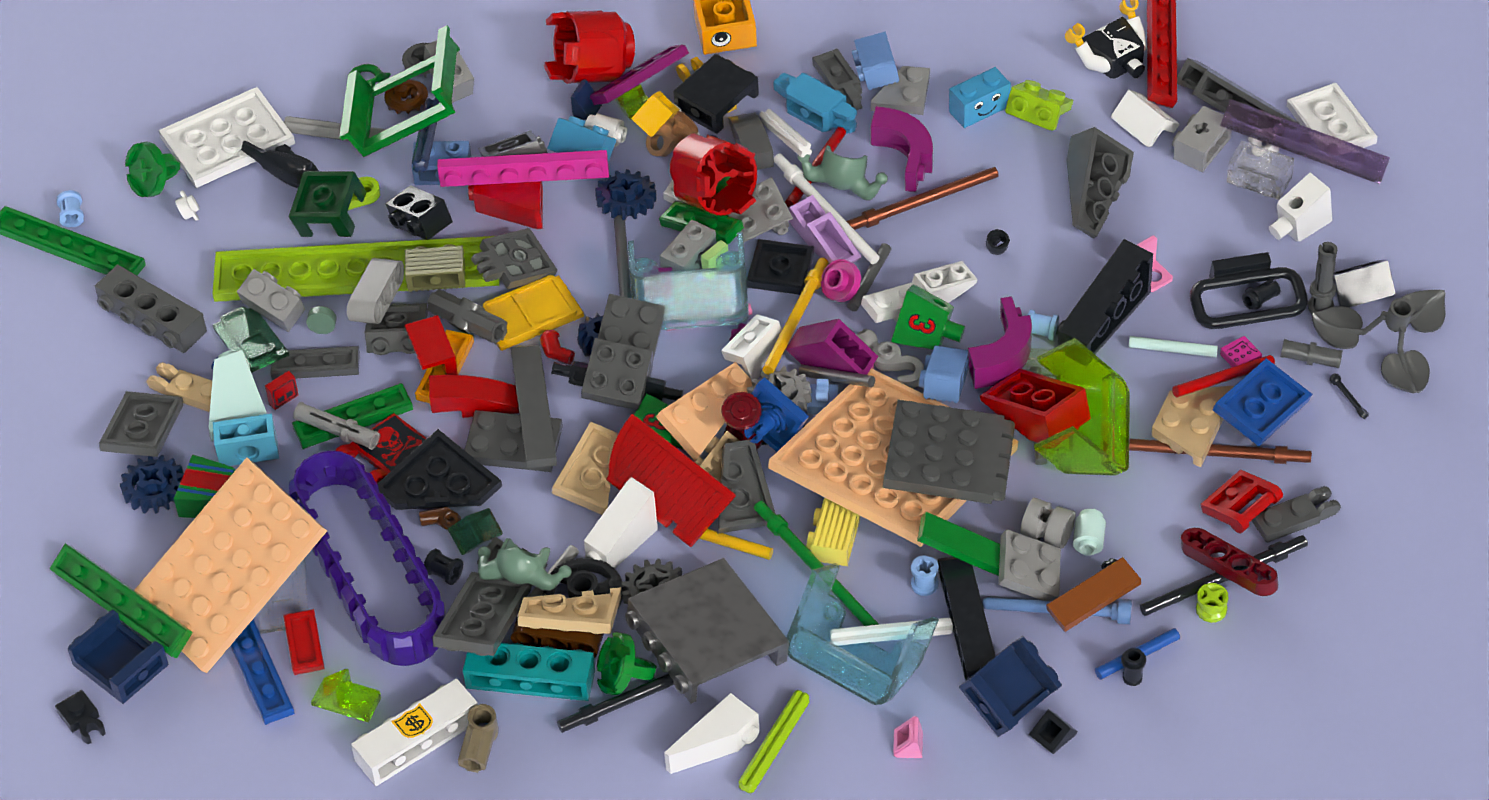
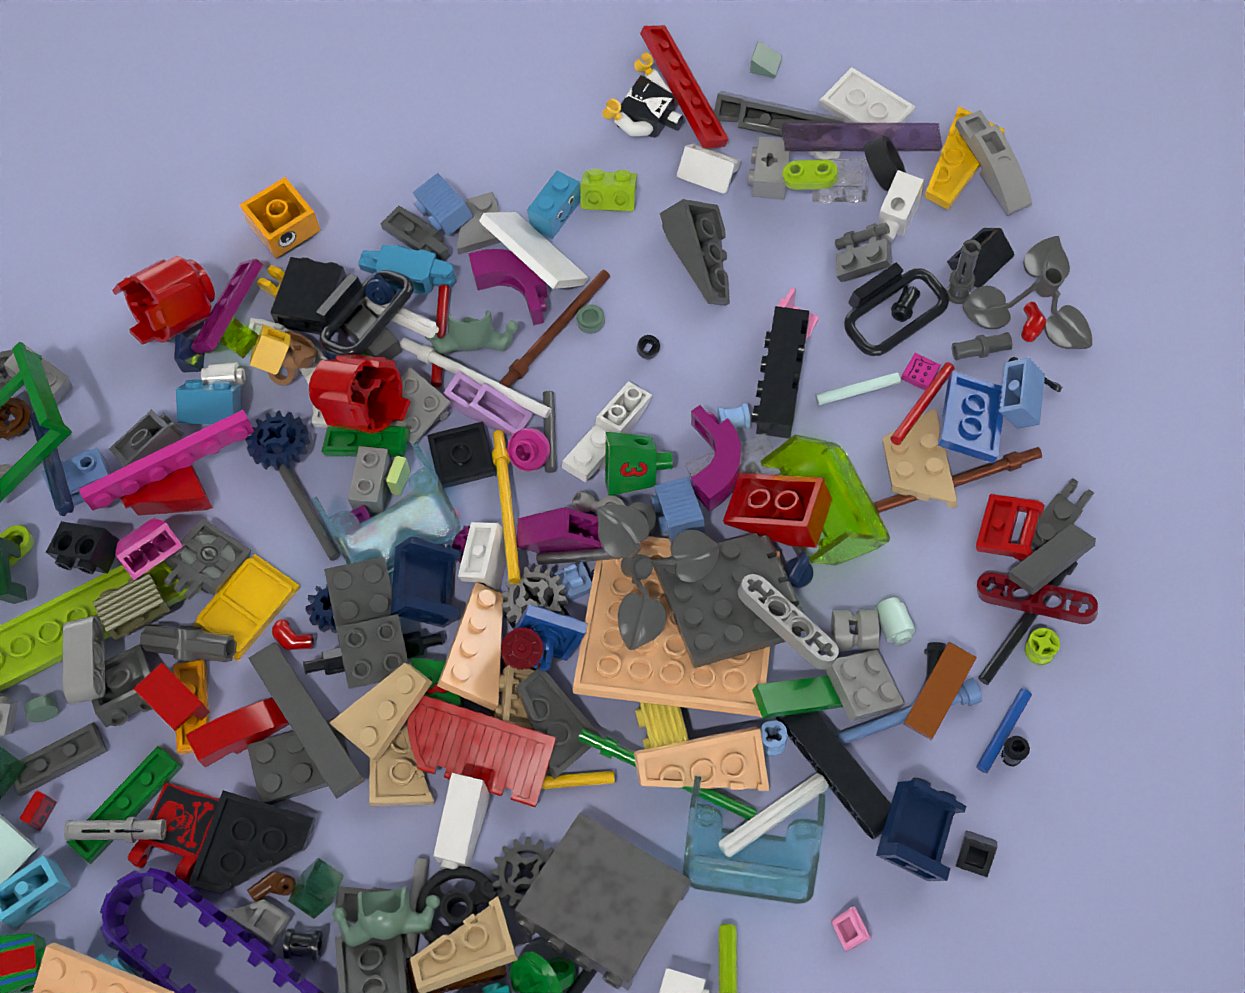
camera: 25 degrees left, 15 degrees up
(422, 539) = (261, 920): none -> light grey tile
(471, 225) = (147, 547): none -> dark pink torso
(601, 419) = (382, 711): none -> tan wing
(691, 343) = (424, 582): none -> dark blue panel
(748, 103) = (346, 300): none -> black bar
(778, 105) = (379, 290): none -> dark blue plate
(864, 567) = (721, 760): none -> light nougat wing
(931, 396) = (620, 533): none -> dark grey plant
(938, 125) = (534, 249): none -> white tile
(959, 203) = (590, 319): none -> sand green tile
(977, 480) = (791, 618): none -> light grey beam
(1027, 464) = (799, 571): none -> dark blue plate
(1229, 150) = (809, 174): none -> lime plate
(1244, 235) = (866, 258): none -> dark grey plate
(1254, 48) = (765, 61): none -> slope
(1261, 535) = (1052, 558): none -> dark grey tile
(1310, 158) = (883, 160): none -> black tyre
(1321, 400) = (1022, 393): none -> medium blue brick
(1373, 354) = (1035, 323): none -> red arm
(1400, 191) = (954, 167): none -> yellow wing
(1420, 206) = (997, 160): none -> light grey slope

